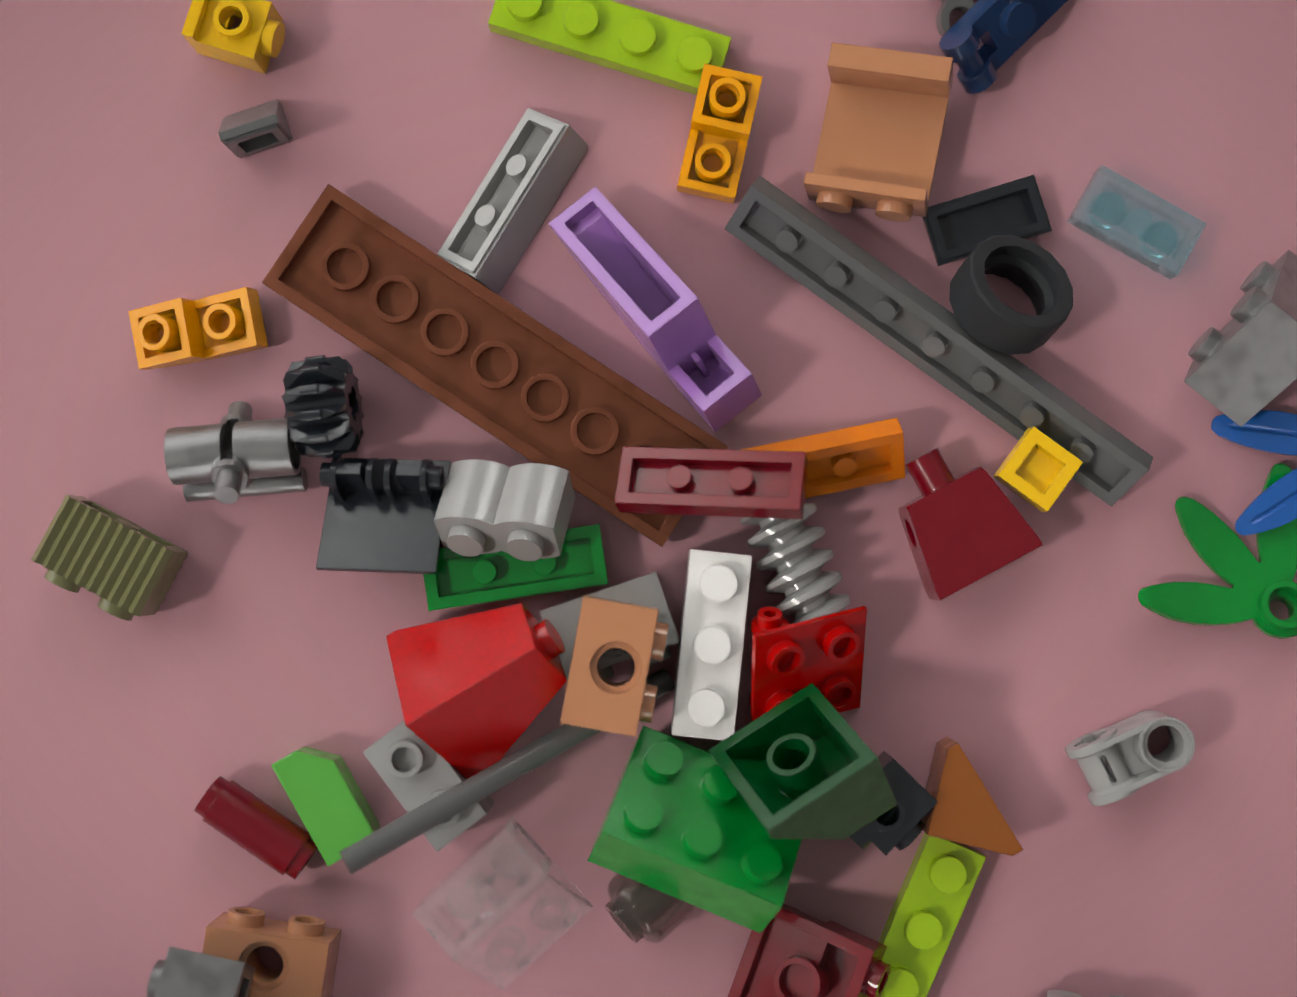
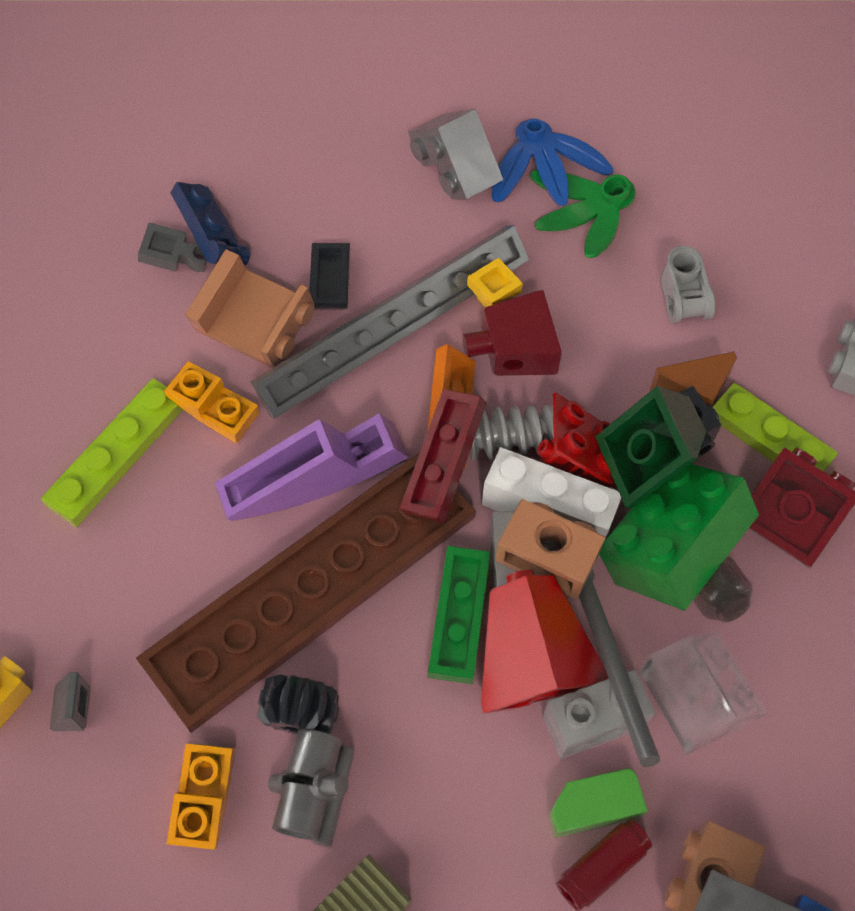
camera: 75 degrees left, 25 degrees down
(381, 515) = (392, 690): black hinge -> none
(505, 509) = (417, 599): light grey brick -> none
(514, 199) = (196, 541): light grey slope -> none
(1027, 267) = (382, 267): black tyre -> none
(1136, 222) = (361, 201): clear light blue plate -> none

